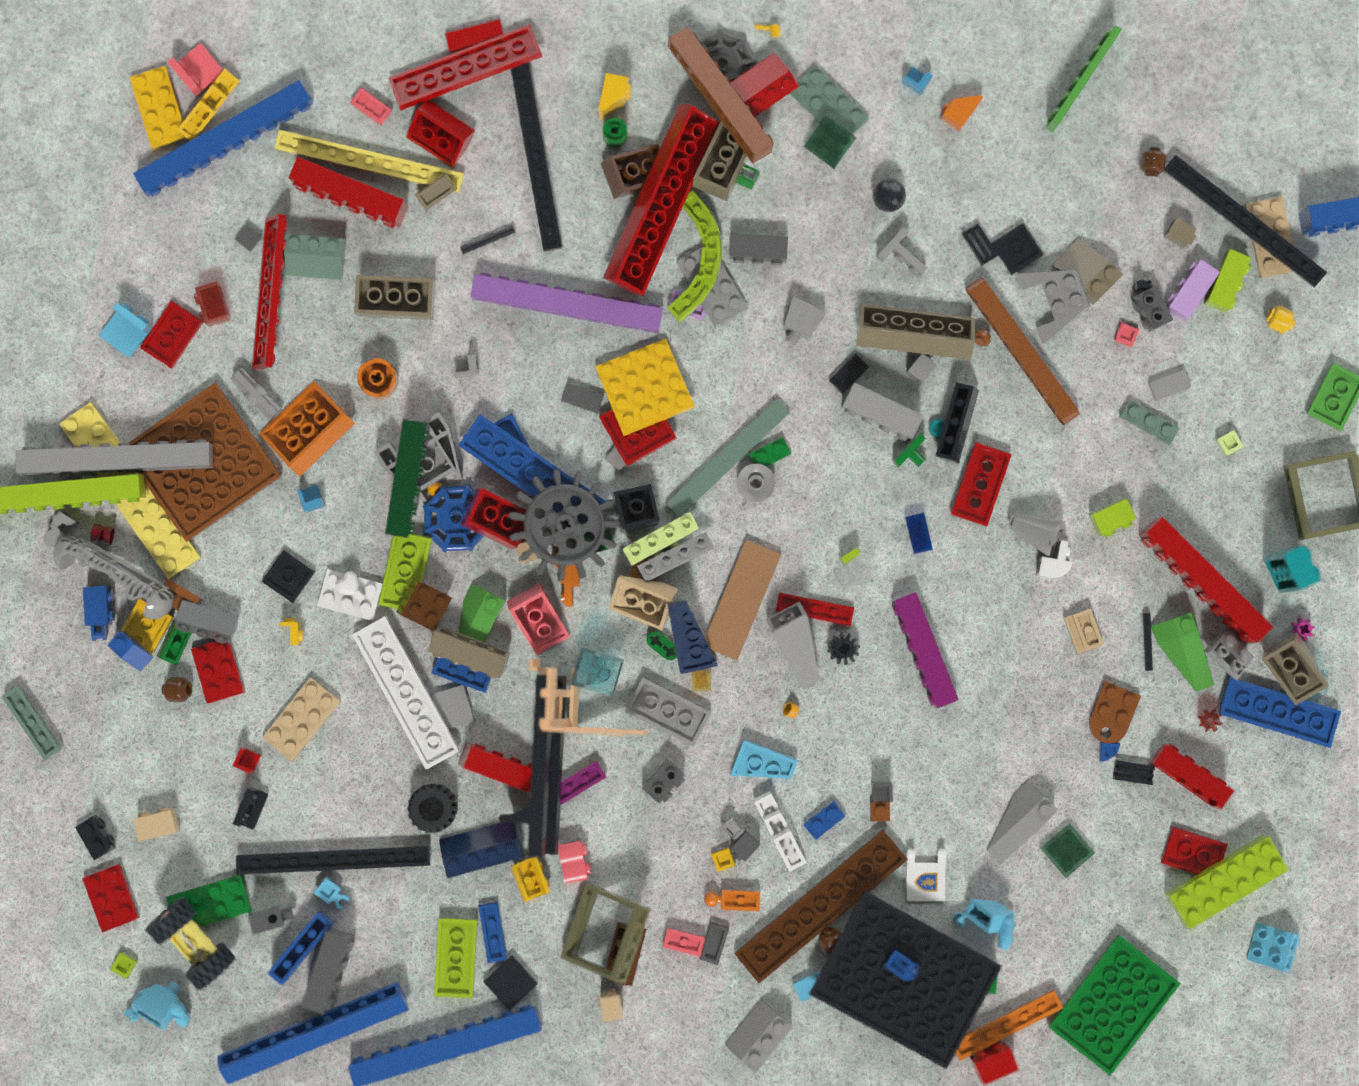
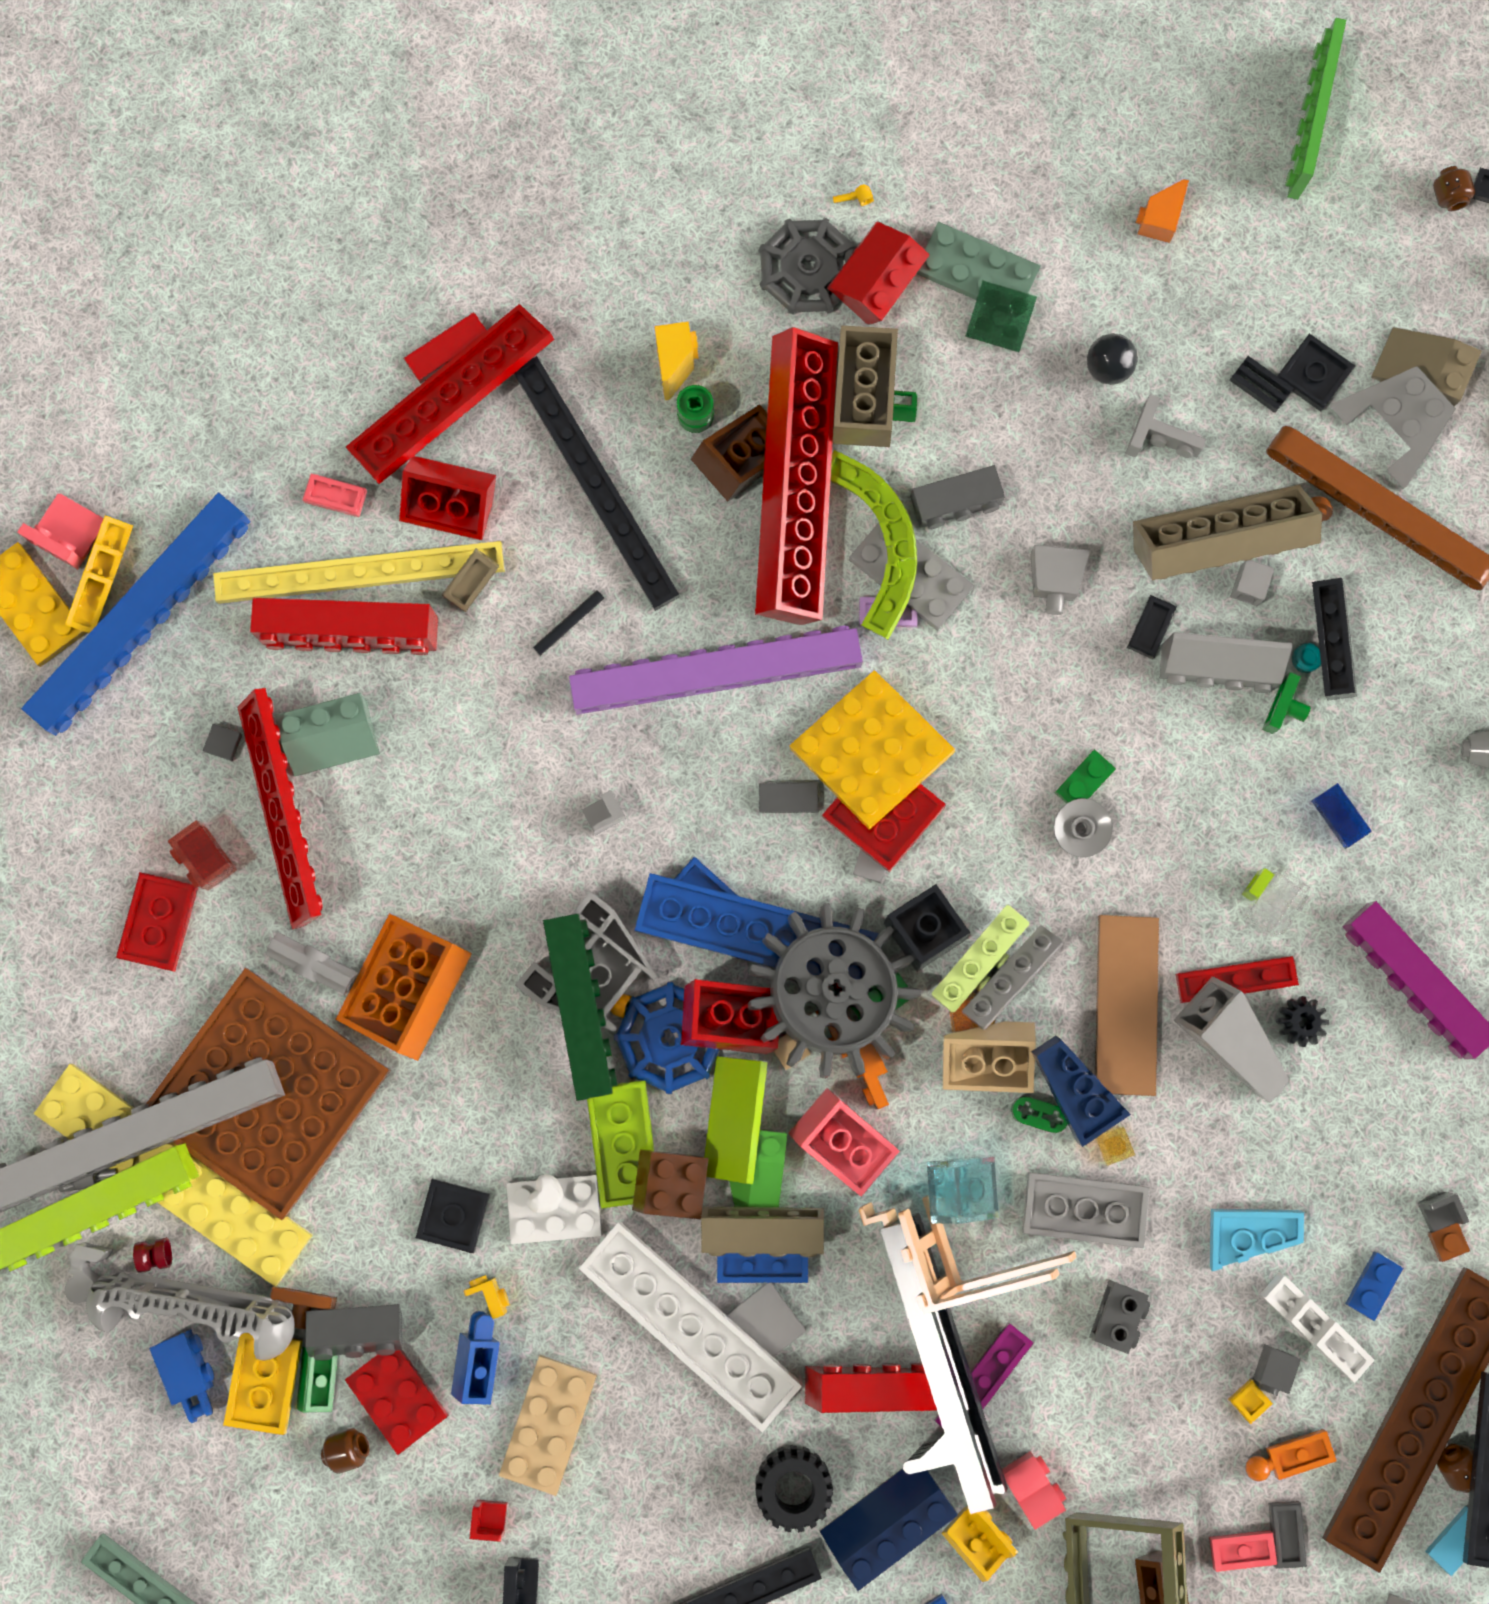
camera: 20 degrees left, 5 degrees down
(125, 330) = (86, 939): medium azure bracket -> none
(130, 650) = (253, 1418): blue slope -> none
(272, 666) = (476, 1362): none -> blue brick
(310, 498) = (445, 1087): dark azure panel -> none
(372, 369) = (471, 863): orange brick -> none
(394, 297) = (464, 750): dark tan brick -> none
(477, 580) = (735, 1119): none -> lime tile
(720, 95) = (827, 302): brick -> none
(727, 458) = (1027, 808): sand green tile -> none
(733, 828) = (1248, 1349): light grey bush -> none
(790, 710) = (1254, 1140): light orange hinge -> none
(916, 80) = (1086, 194): dark azure panel -> none
(993, 479) = (1416, 703): red plate -> none

